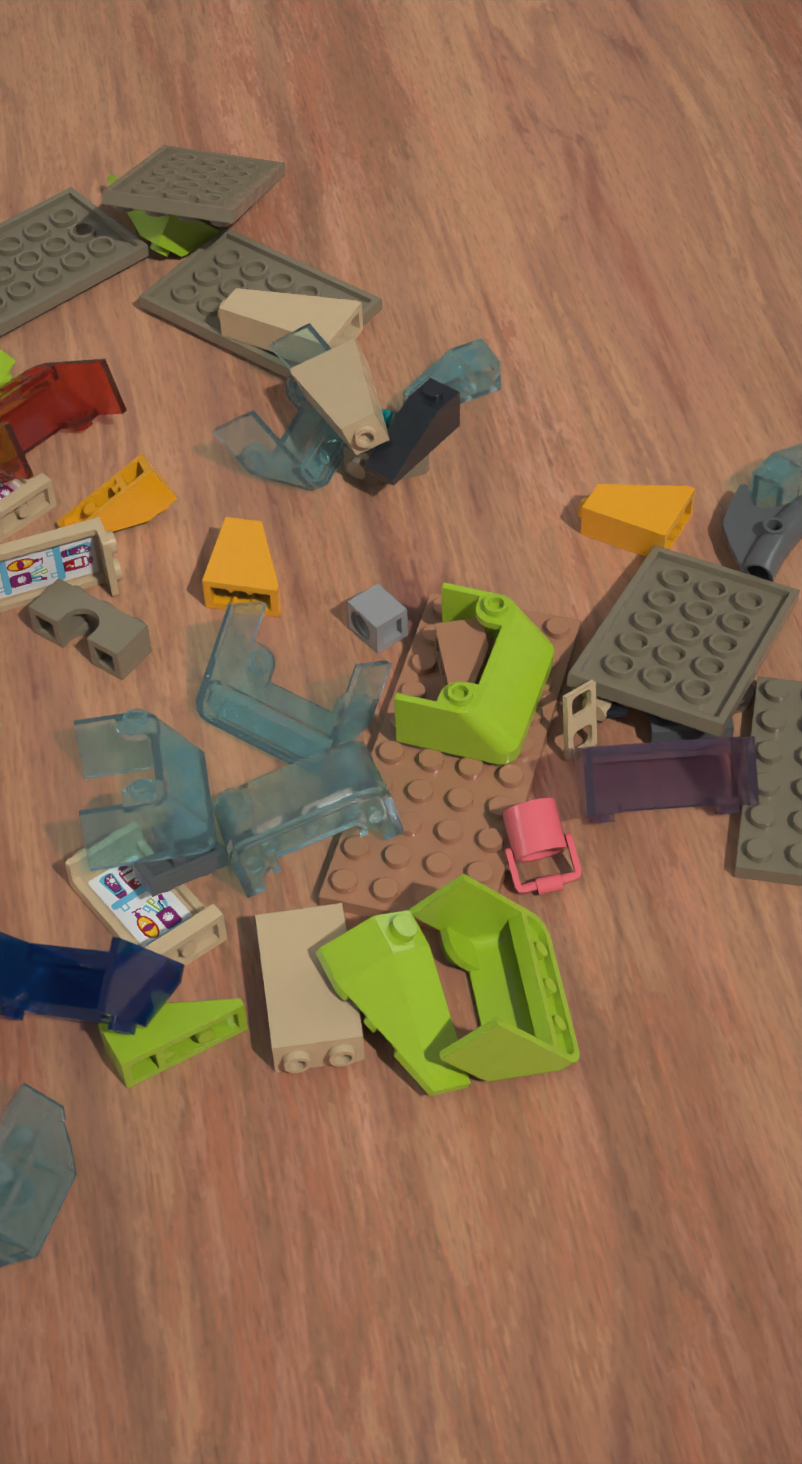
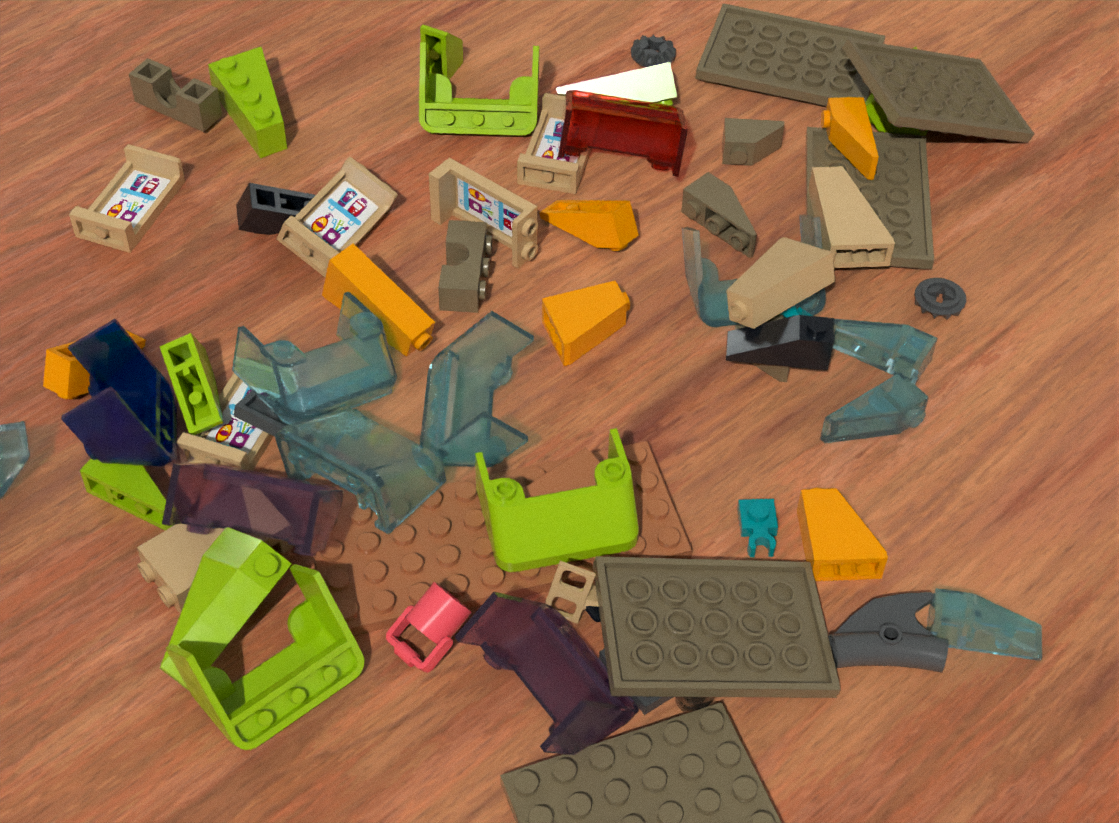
camera: 55 degrees right, 0 degrees up
(46, 712) = (403, 320): none -> light orange slope
(71, 918) = (193, 383): none -> lime slope
(114, 342) = (750, 140): none -> dark tan slope
(190, 266) = (851, 132): none -> light orange slope
(192, 407) = (720, 212): none -> dark tan slope
(322, 898) = (253, 504): none -> windscreen
(377, 618) = (593, 420): light grey brick -> none
(424, 312) = (953, 297): none -> dark grey gear
(524, 417) = (877, 413): none -> clear light blue slope
(578, 562) = (759, 523): none -> teal plate

